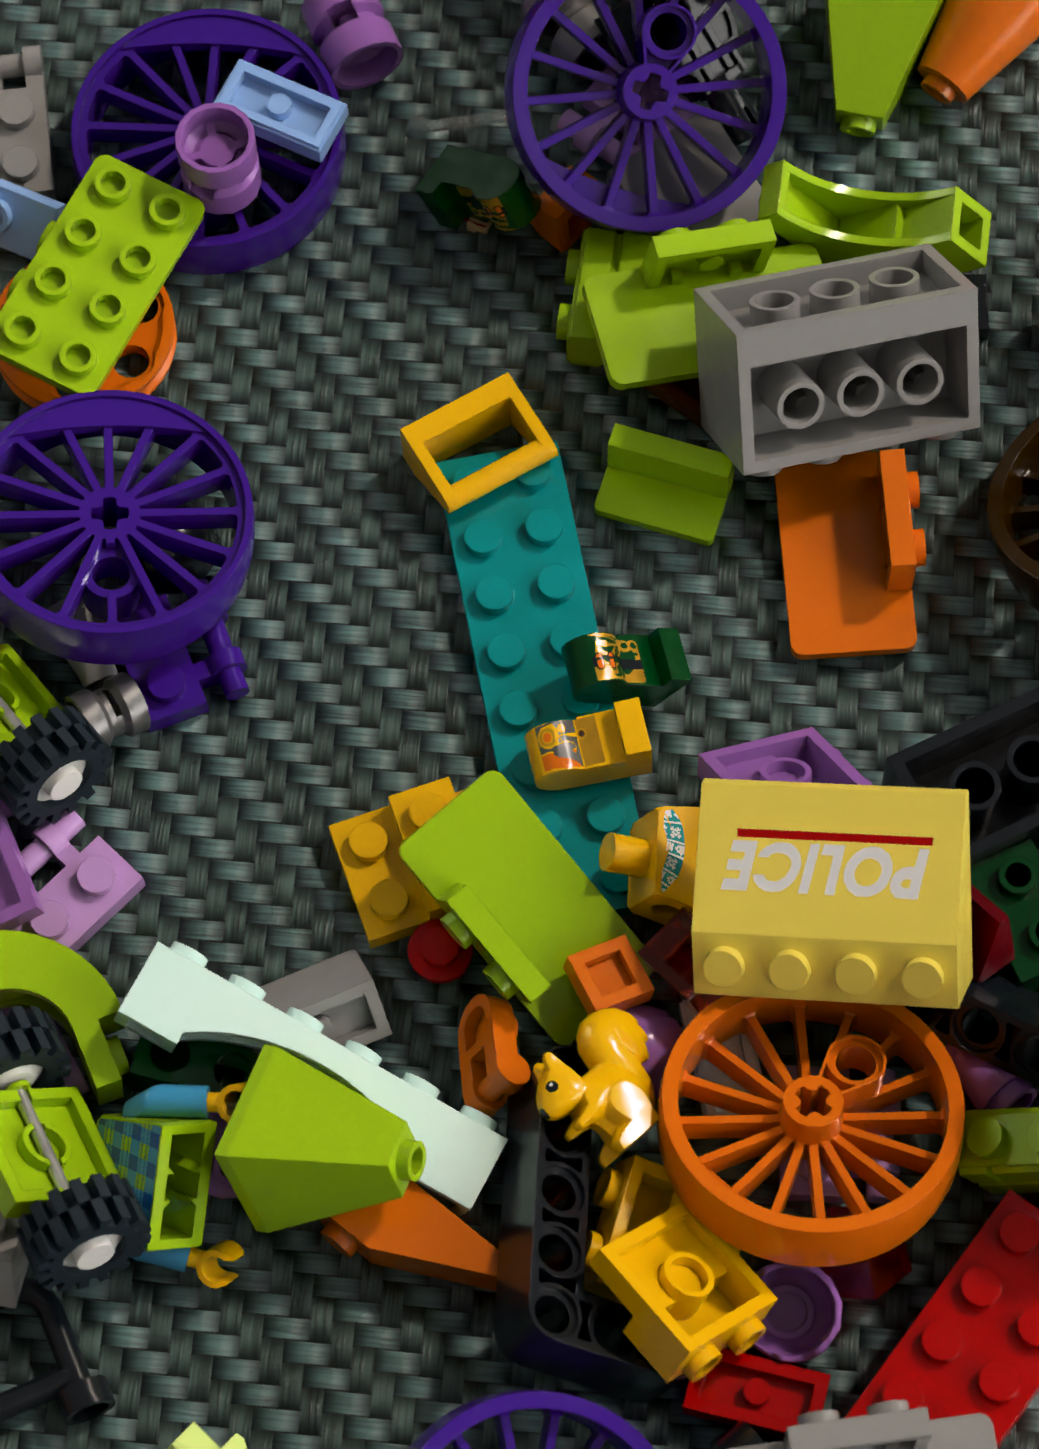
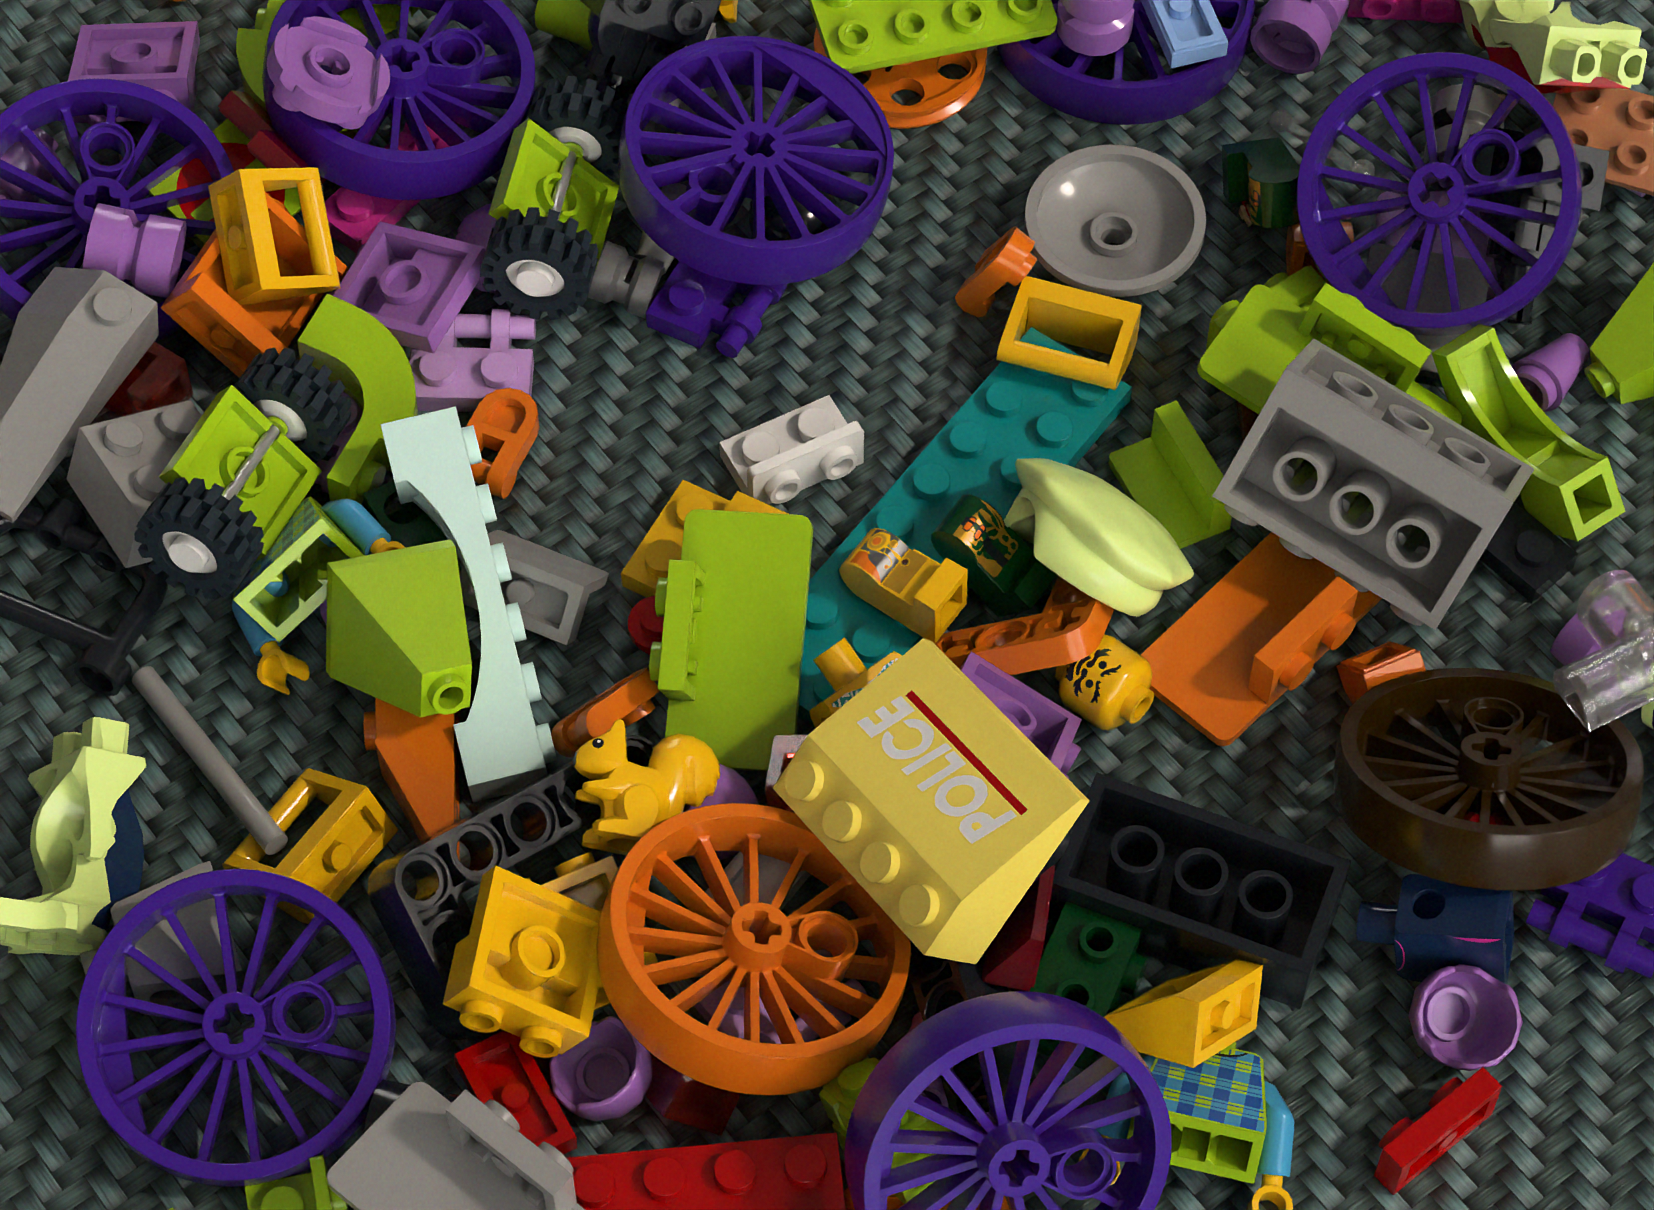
camera: 45 degrees right, 10 degrees down
(150, 912) = (507, 424): none -> orange plate
(247, 1383) = (210, 760): none -> light grey bar
(371, 441) = (1001, 263): none -> orange plate
(376, 726) = (794, 452): none -> white bracket
(406, 292) = (1120, 199): none -> light grey dish
(421, 1357) = (333, 848): none -> yellow tile
(609, 976) = (739, 733): orange plate -> none
(693, 577) = (1095, 536): none -> yellowish green piece
(727, 691) = (1060, 635): none -> orange beam
(796, 683) = (1107, 685): none -> yellow head
(821, 148) = (1552, 370): none -> medium lavender cone
(960, 493) = (1377, 666): none -> orange brick

